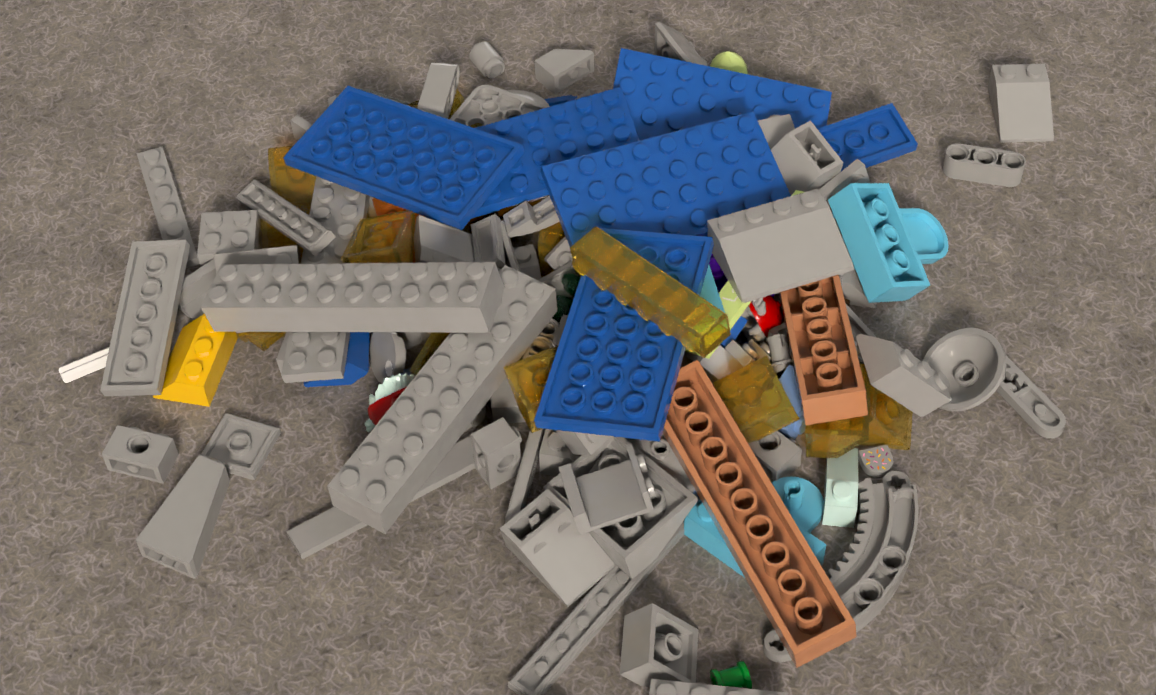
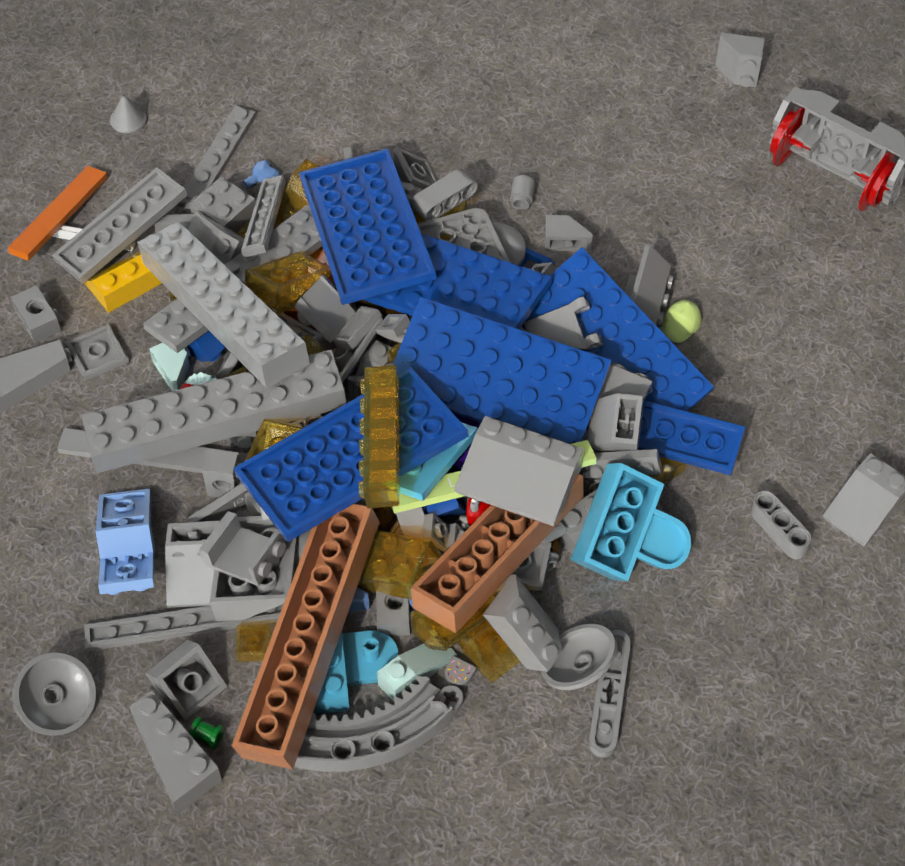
camera: 40 degrees right, 5 degrees up
(33, 228) = (128, 116): none -> light grey hat
(61, 353) = (57, 213): none -> orange tile
(226, 192) = (260, 171): none -> medium blue rock
(330, 403) = (170, 364): none -> light aqua slope
(473, 576) = (125, 542): none -> light blue bracket
(667, 119) = (564, 327): none -> light grey flag
(681, 574) = (252, 642): none -> clear yellow piece

